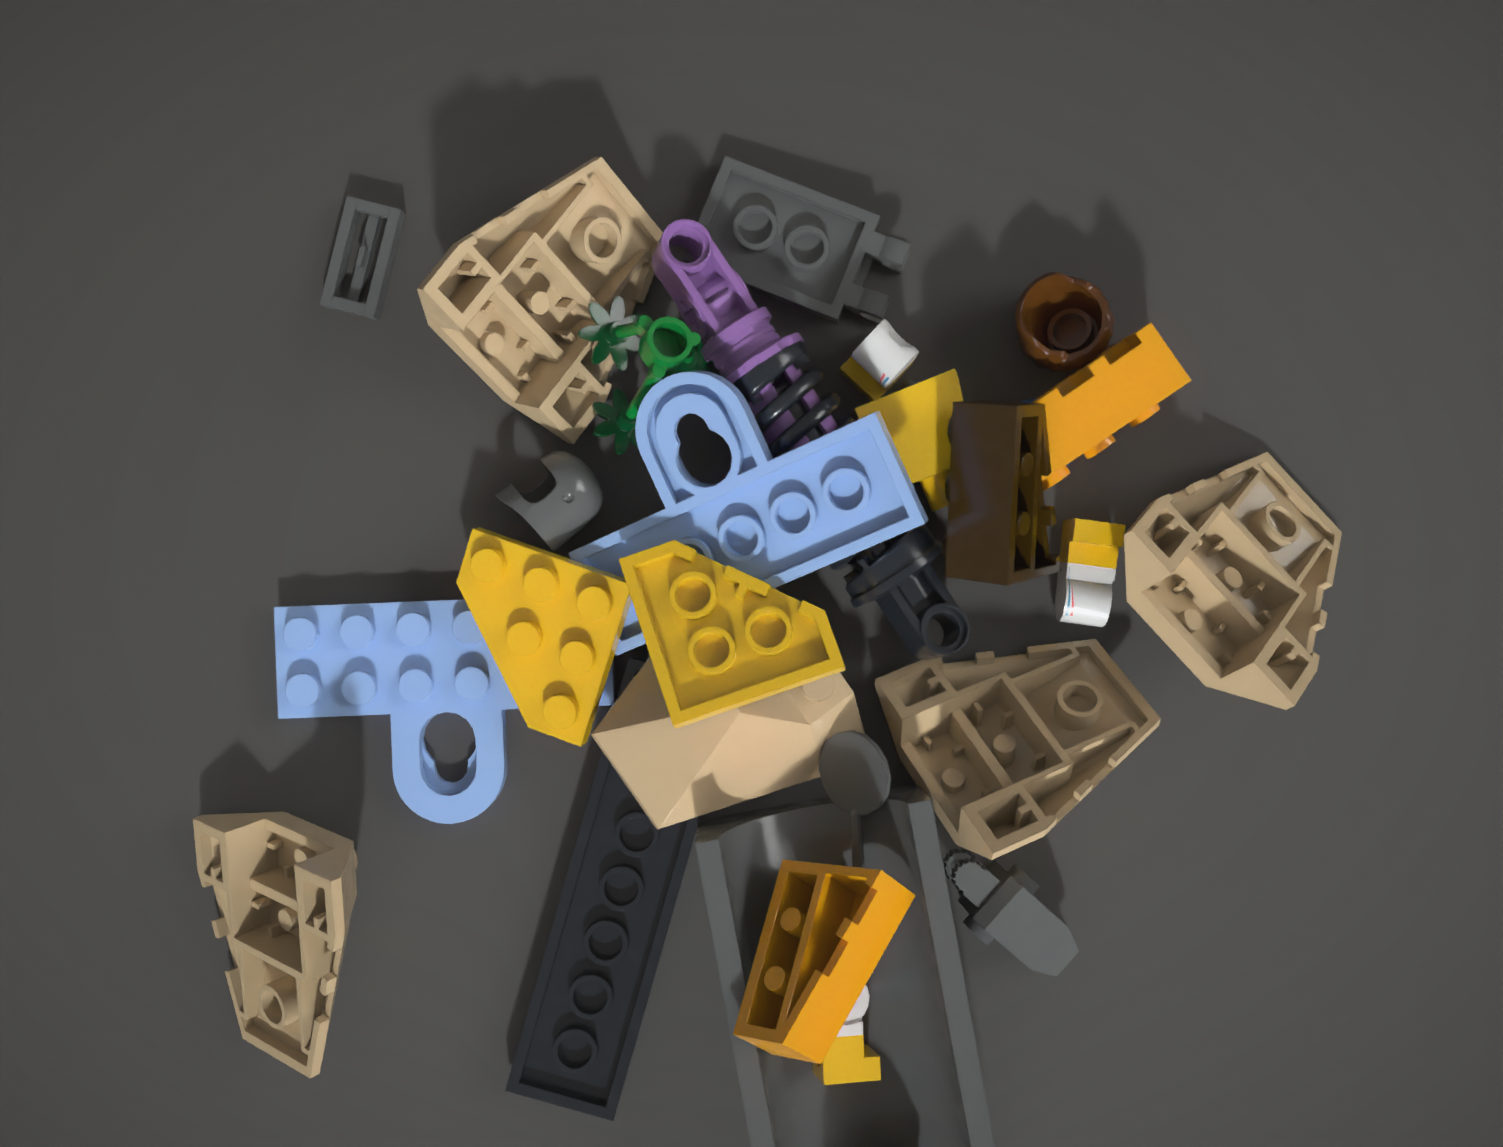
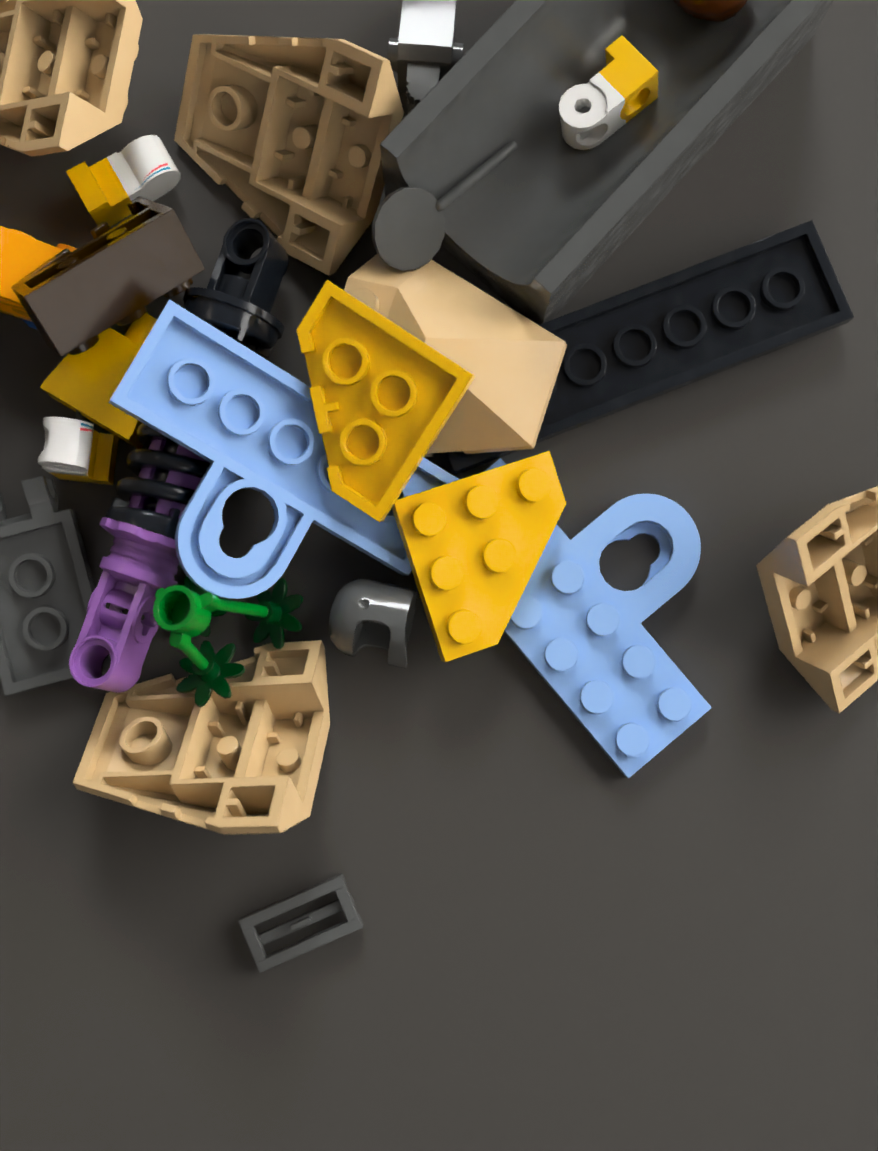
camera: 130 degrees left, 5 degrees down
(817, 955) = (562, 142): light orange wedge -> none

